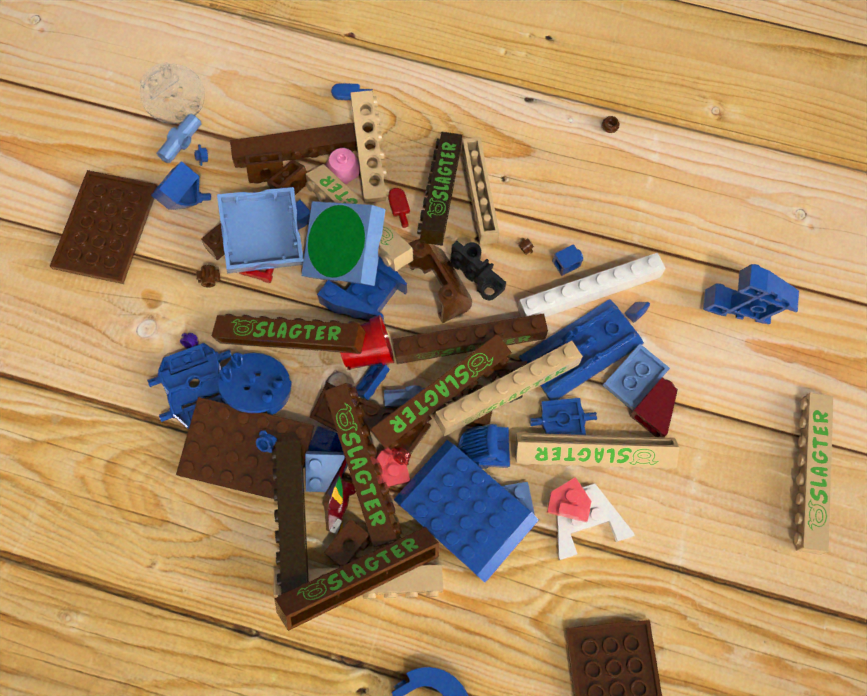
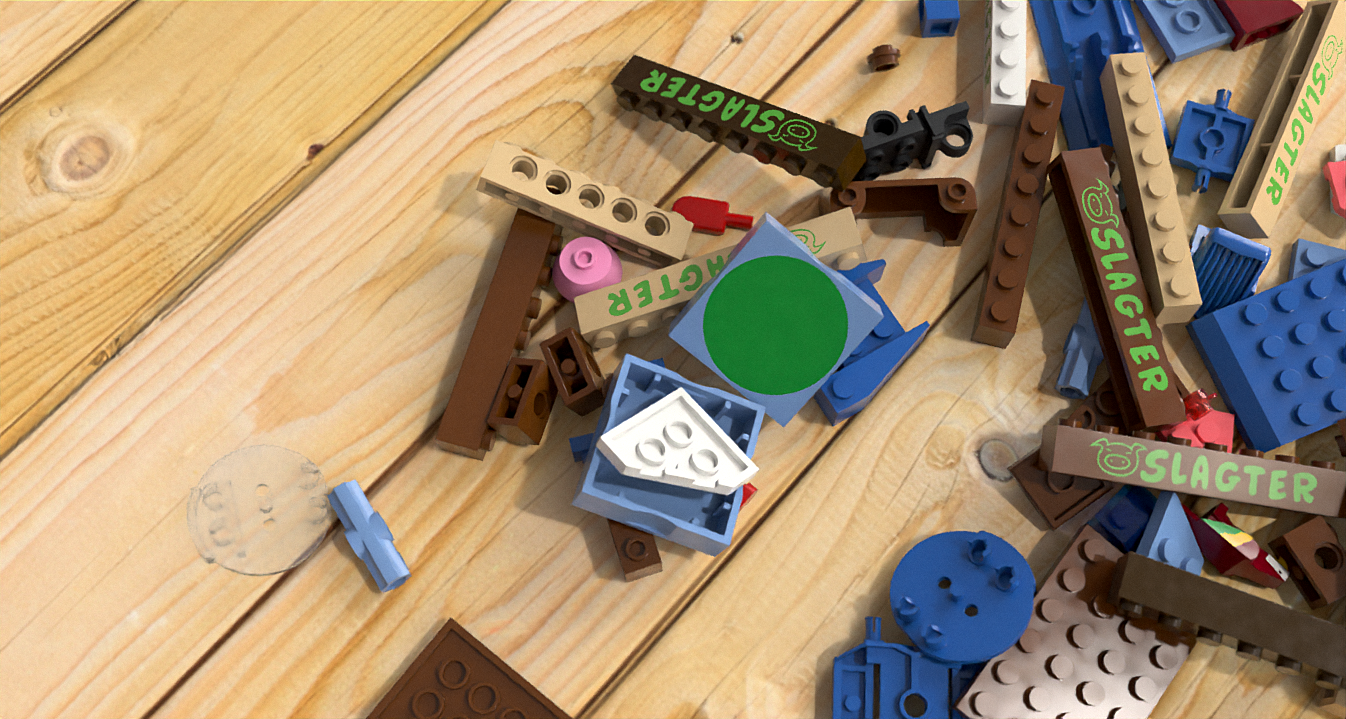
camera: 60 degrees left, 0 degrees up
(180, 189) = (487, 575): blue piece -> none
(189, 340) = (813, 685): dark purple plate -> none
(201, 155) = (429, 508): blue plate -> none
(208, 276) = (698, 595): reddish brown gear -> none
(259, 226) = (678, 447): none -> white plate
(265, 442) = (1099, 616): blue plate -> none
(289, 334) = (902, 491): reddish brown brick -> none
(343, 91) = (435, 199): blue piece -> none
(371, 380) = (1028, 397): blue plate -> none
(375, 347) = (971, 371): red piece -> none
(480, 191) = (764, 76): tan brick -> none

